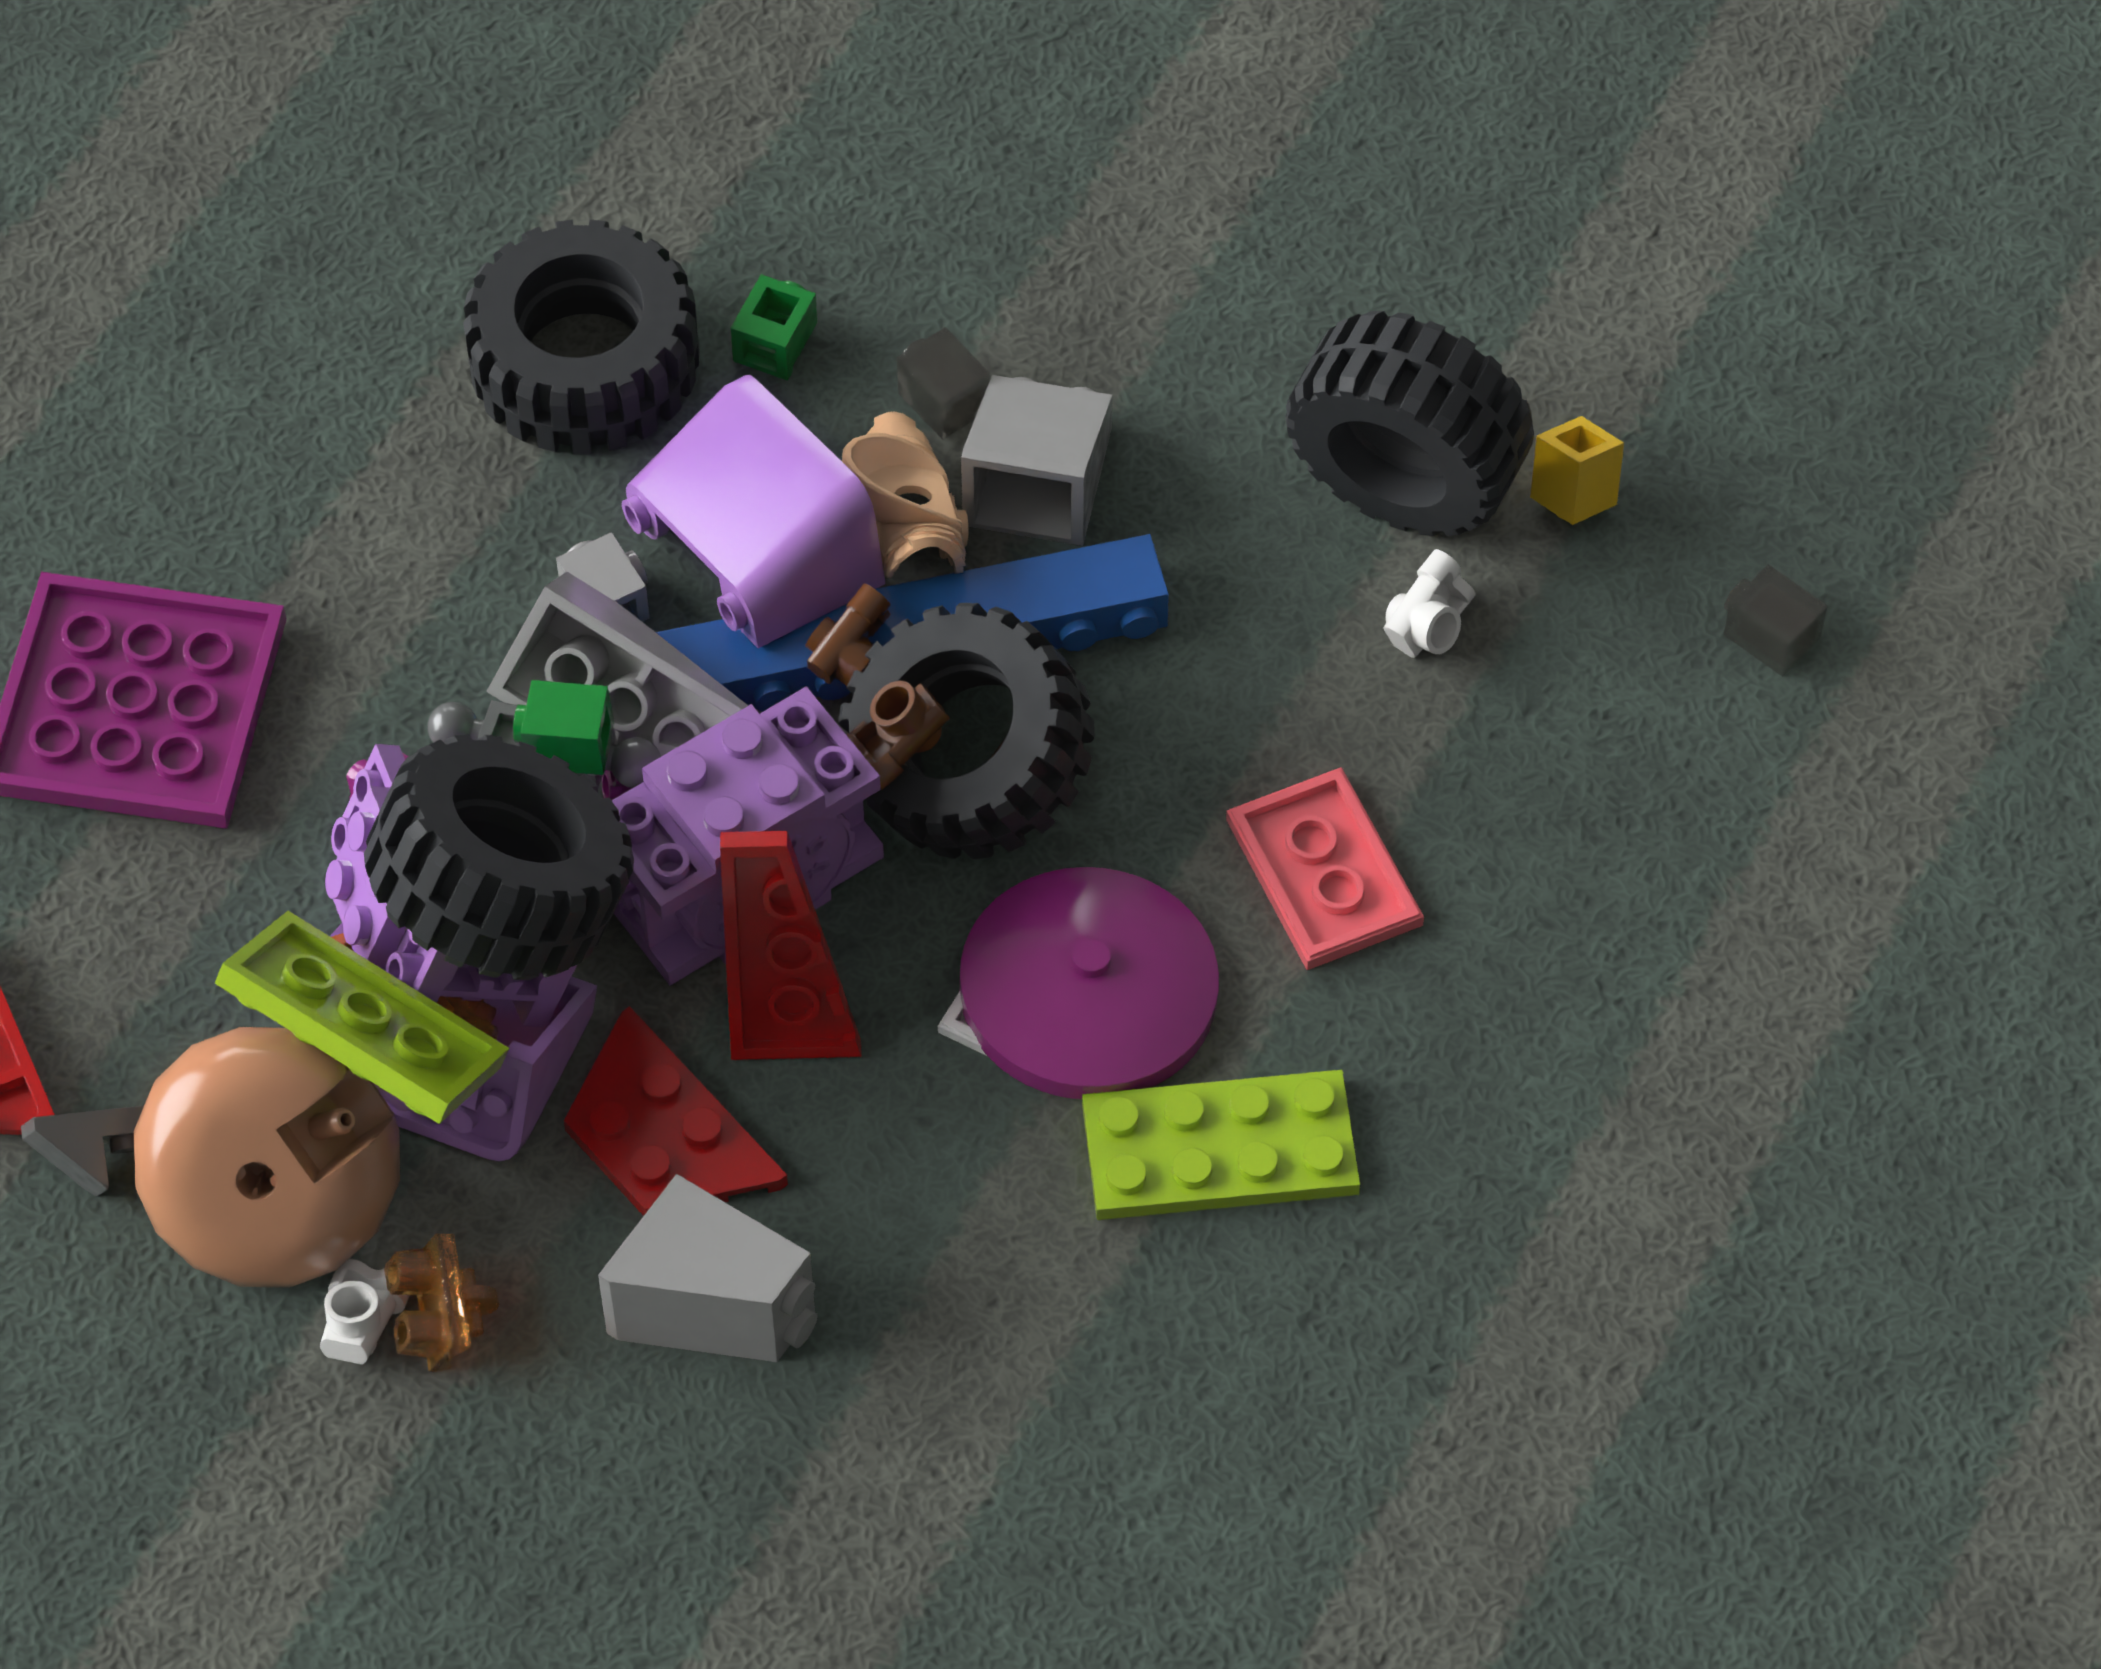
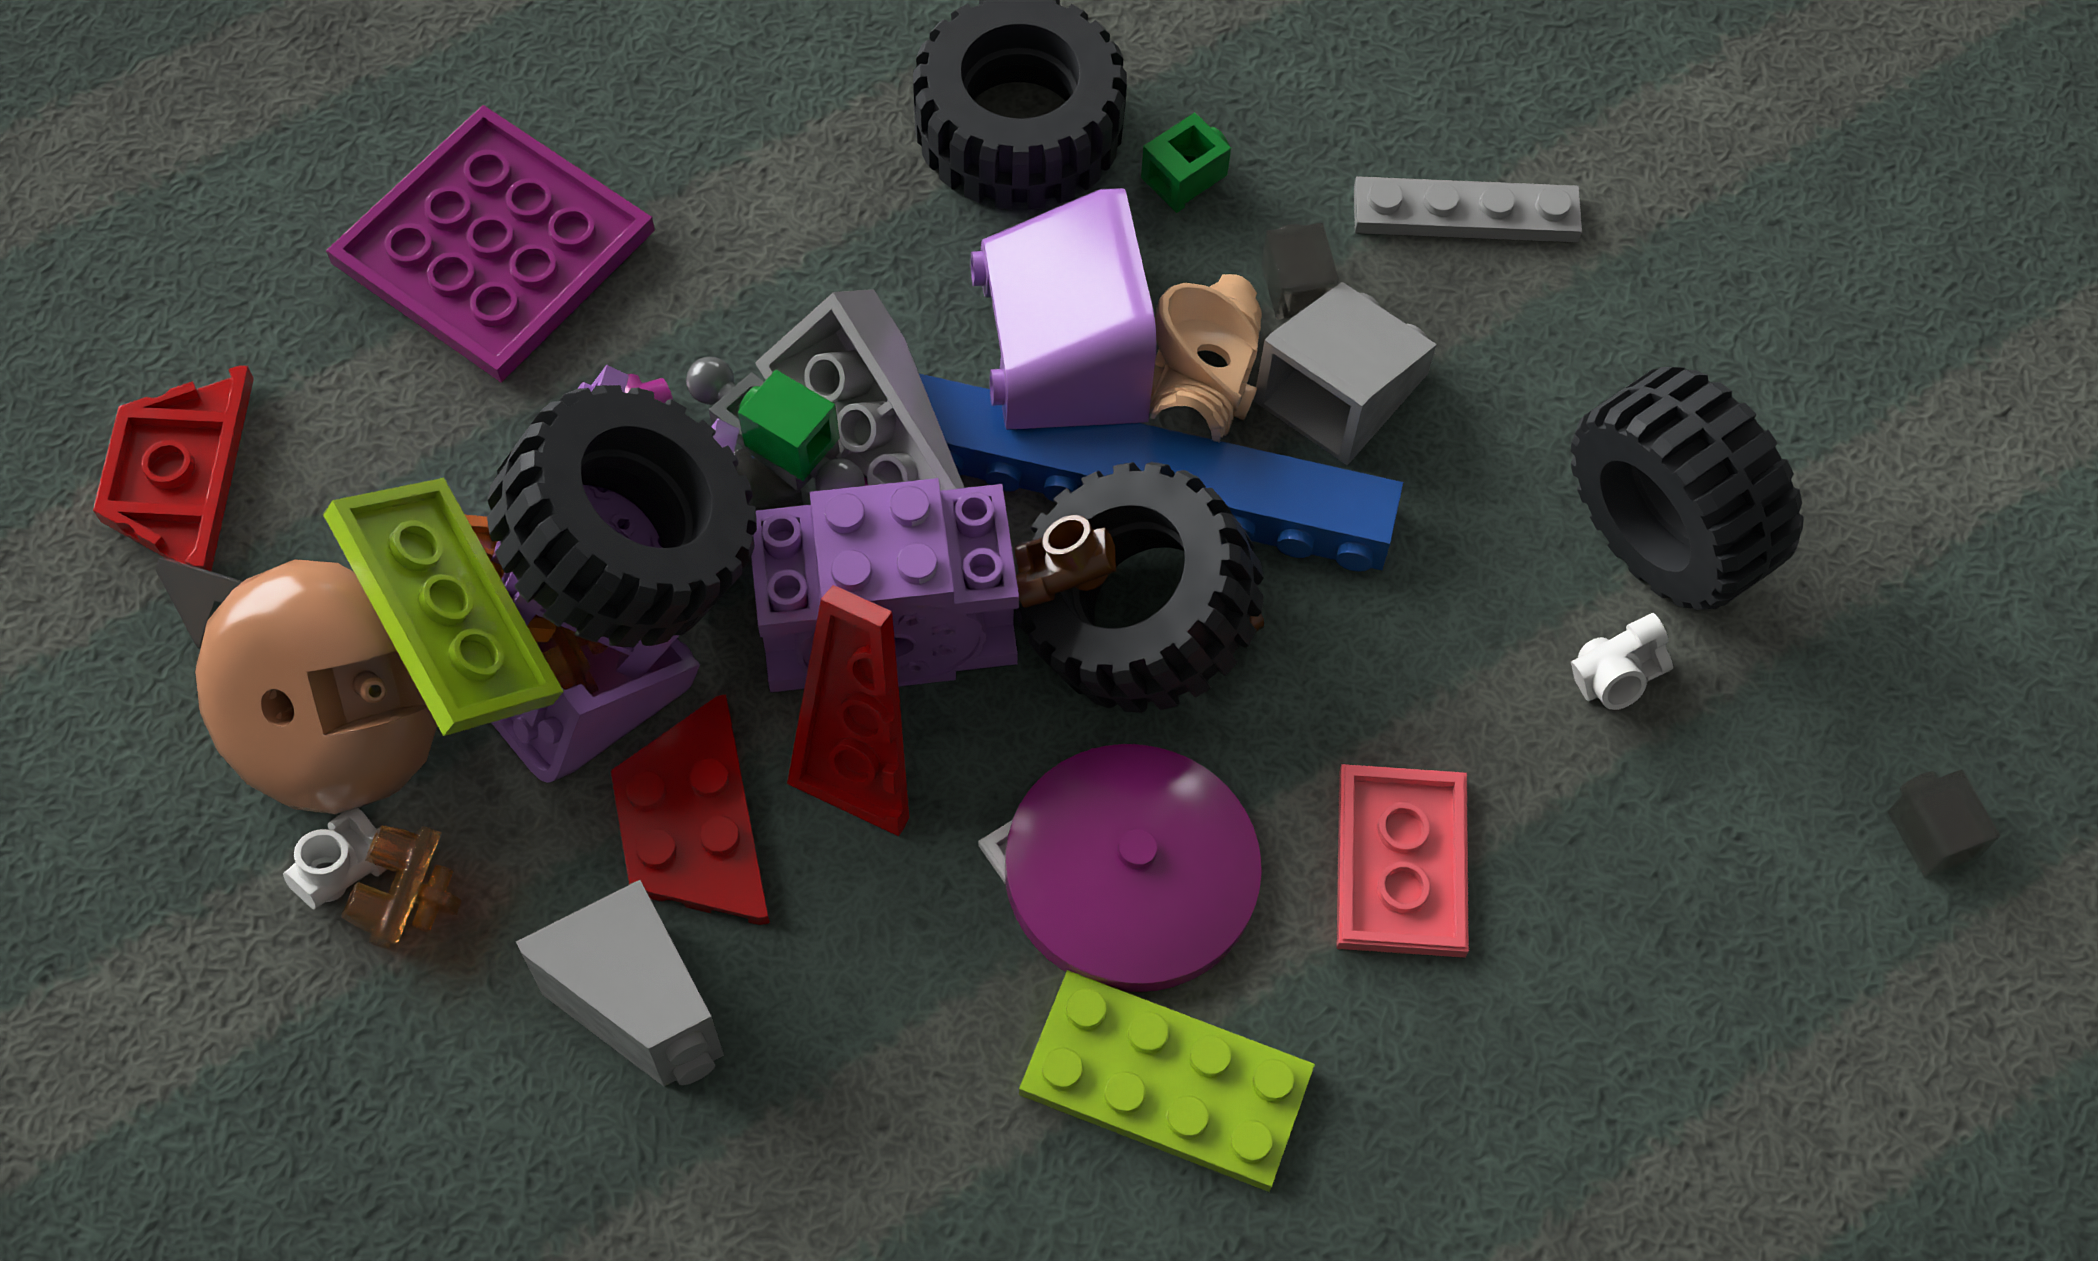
camera: 25 degrees right, 5 degrees up
(609, 571) = (922, 313): light grey brick -> none
(842, 645) = (1075, 456): reddish brown plate -> none
(1064, 256) = (1467, 209): none -> light grey plate
(1576, 470) = (1823, 597): yellow brick -> none

